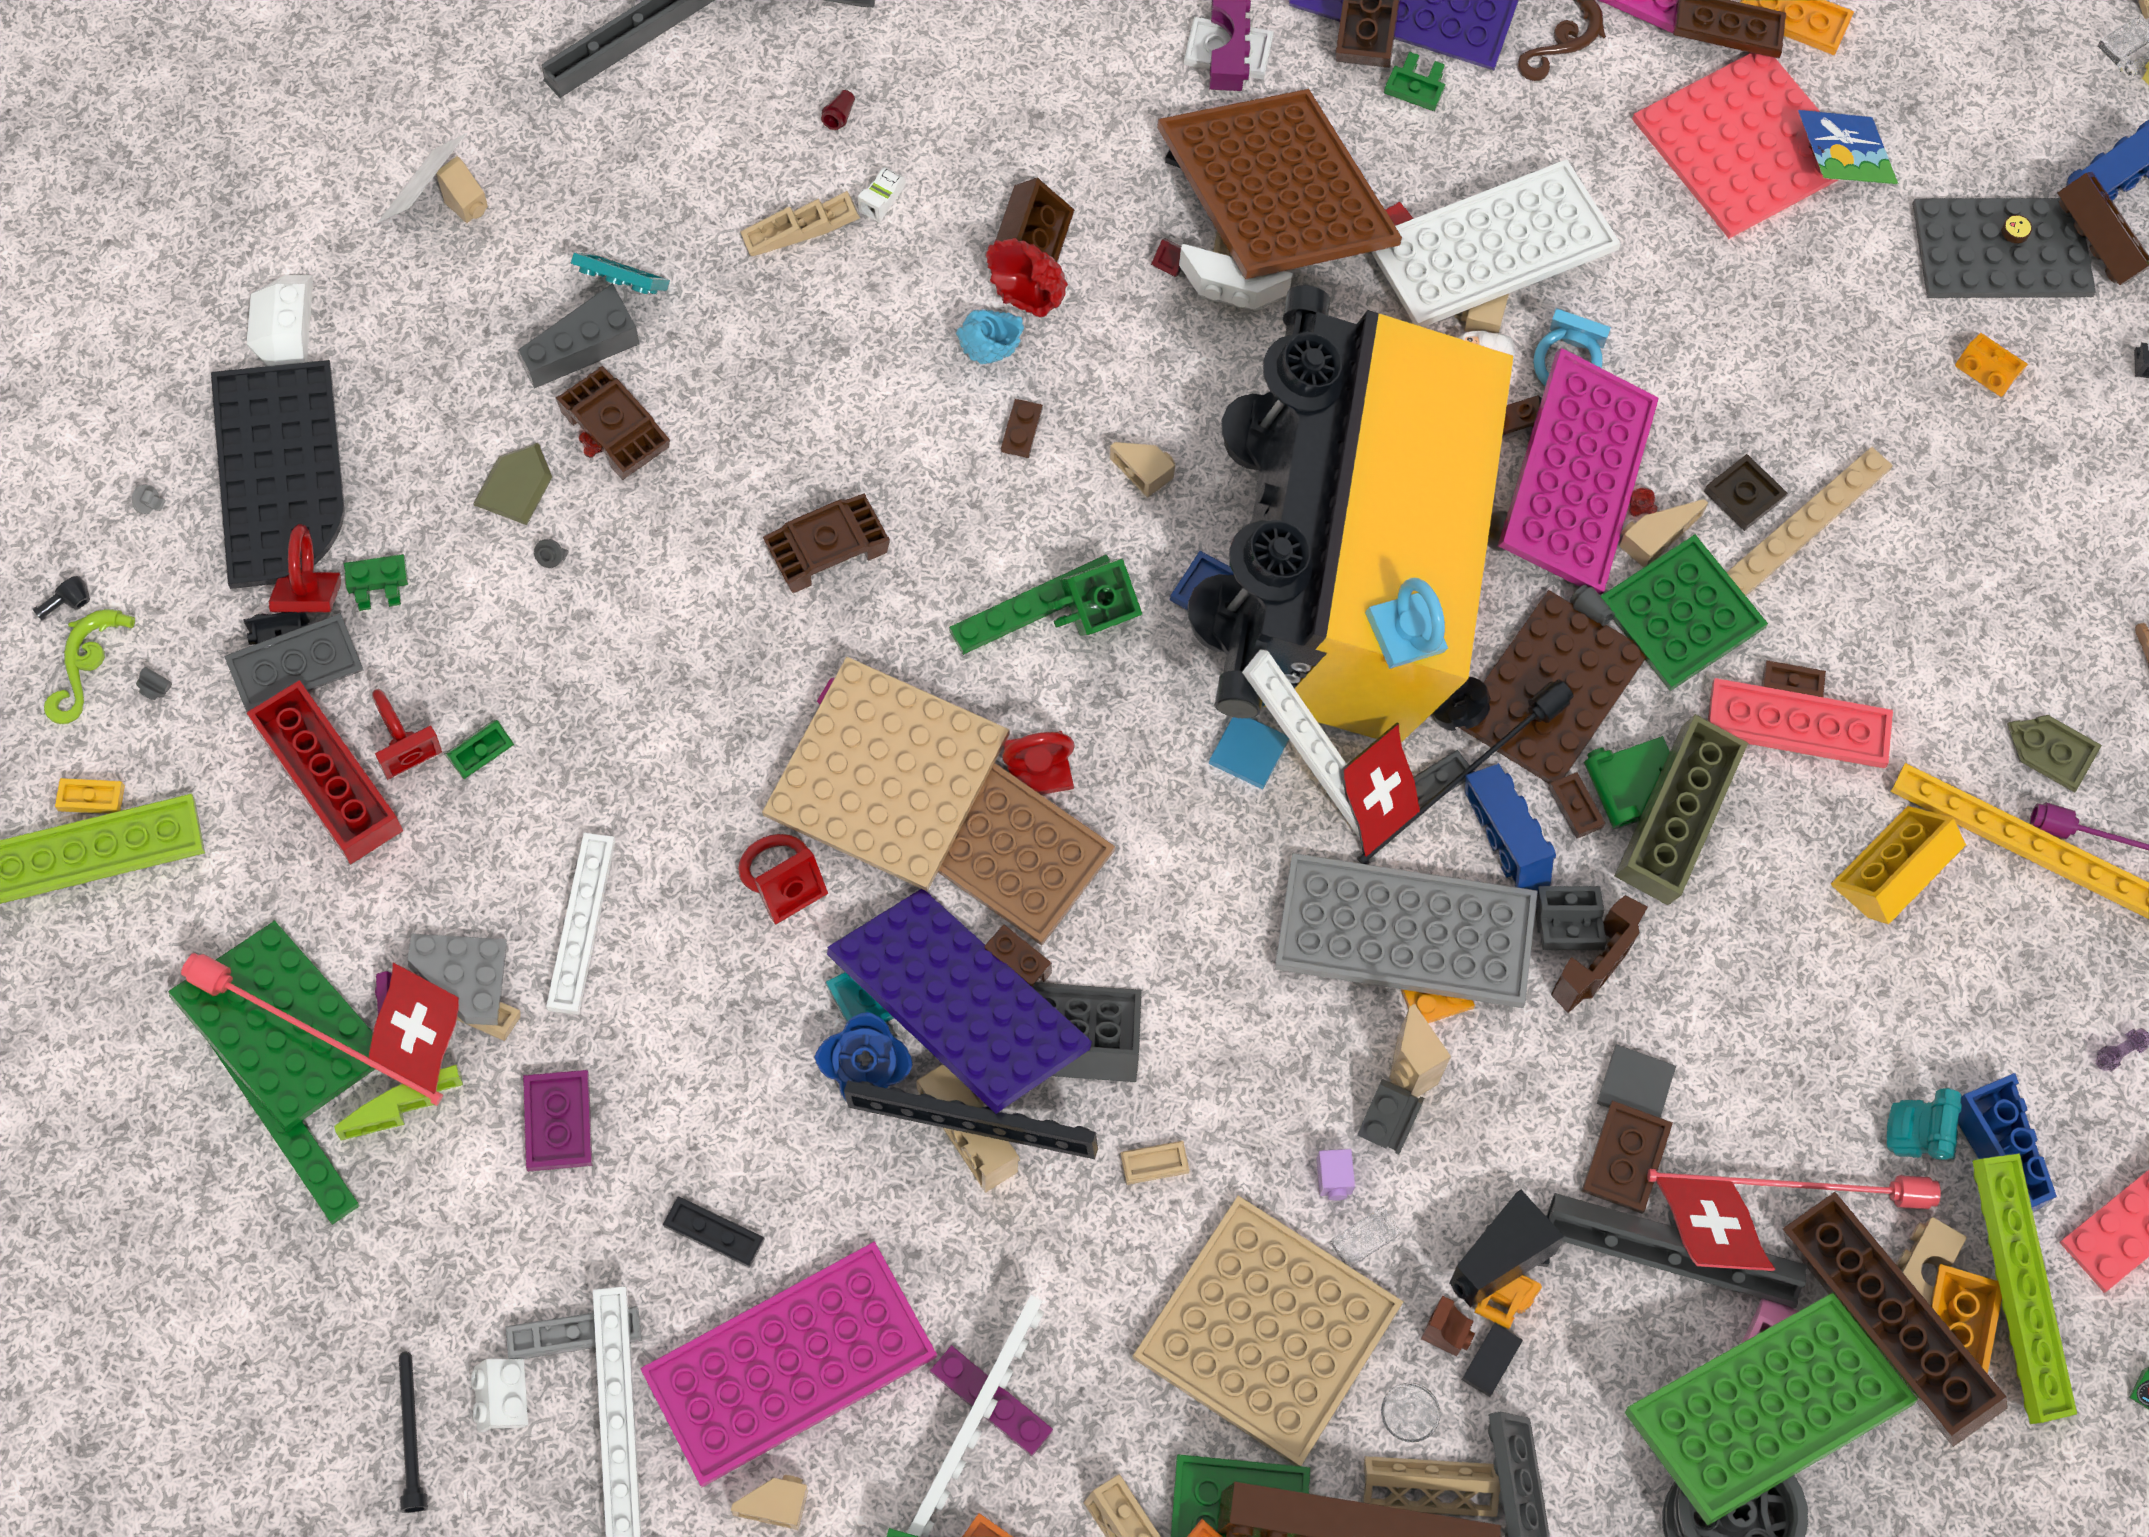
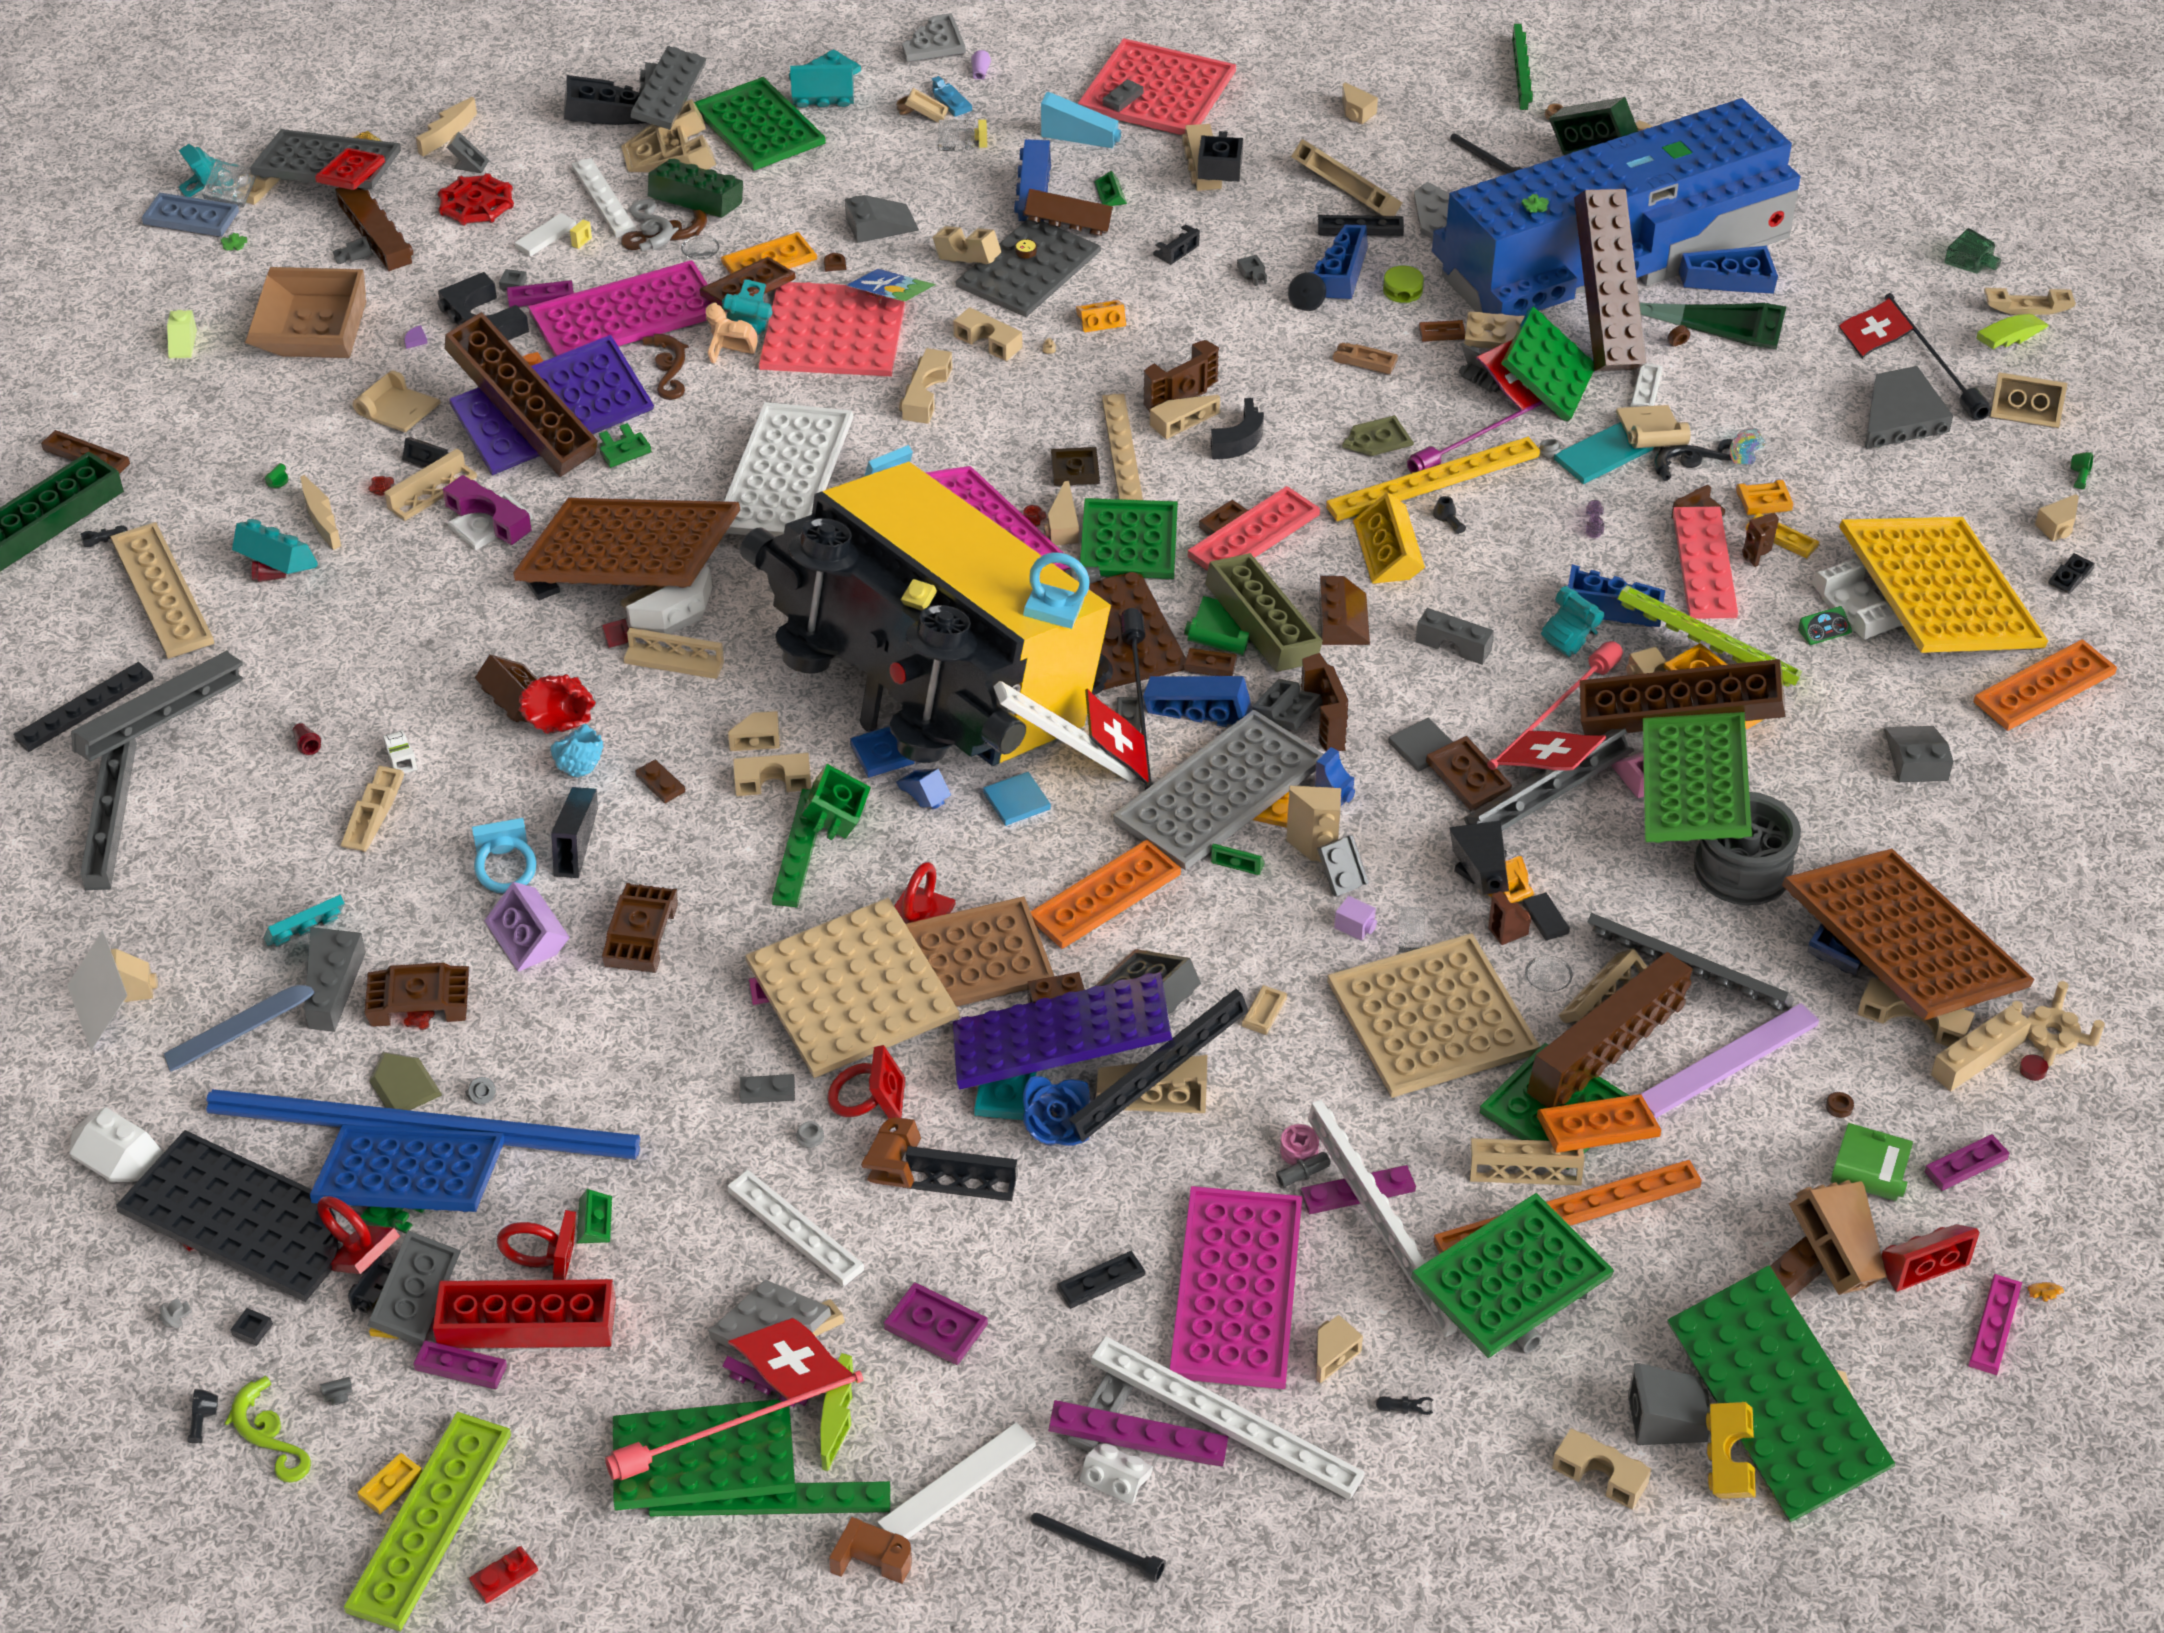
camera: 50 degrees left, 20 degrees down
(60, 953) = (503, 1574): none -> red plate
(174, 568) = (251, 1326): none -> black plate
(245, 759) = (460, 1364): none -> magenta plate
(275, 1239) = (872, 1547): none -> dark orange piece
(396, 1262) = (958, 1482): none -> white tile
(412, 562) = (409, 1168): none -> blue plate
(470, 312) = (237, 1026): none -> sand blue piece
(480, 541) = (338, 1114): none -> blue axle
(549, 1388) = (1138, 1433): none -> magenta plate
(698, 859) = (810, 1134): none -> light grey plate
(720, 942) = (888, 1151): none -> dark orange piece
(726, 785) = (767, 1088): none -> dark grey plate
(753, 1017) = (964, 1166): none -> black fence
(758, 450) = (526, 926): none -> lavender slope
(831, 354) = (501, 839): none -> medium azure tile
(896, 402) = (573, 832): none -> black slope
(973, 1331) = (1303, 1169): none -> dark grey axle
(998, 1296) = (1298, 1142): none -> bright pink wheel
(1086, 498) = (754, 771): none -> tan arch
(1183, 326) = (675, 657): none -> tan fence
(1186, 915) = (1105, 893): none -> orange plate
(1188, 662) = (926, 787): none -> blue arch
(1312, 499) = (919, 595): none -> light yellow plate
(1330, 1007) = (1237, 859): none -> green slope
(1501, 1032) = (1332, 774): none -> blue arch
(1642, 56) = (729, 334): none -> light nougat piece
(1681, 50) = (747, 307): none -> teal piece
(1756, 885) = (1343, 612): none -> reddish brown slope
(1766, 268) = (932, 369): none -> tan arch
(1819, 1035) = (1472, 639): none -> dark grey arch
(1842, 73) = (834, 262): none -> reddish brown tile
(1863, 261) = (1002, 338): none -> tan arch
(1901, 349) = (1049, 346): none -> tan rock
(1909, 539) = (1182, 414): none -> tan slope
(1930, 621) = (1241, 438): none -> black arch
(1941, 66) = (877, 218): none -> dark grey slope
(1954, 512) = (1185, 380): none -> reddish brown plate
(1967, 184) = (977, 247): none -> tan arch
(1997, 895) = (1446, 511): none -> black bar

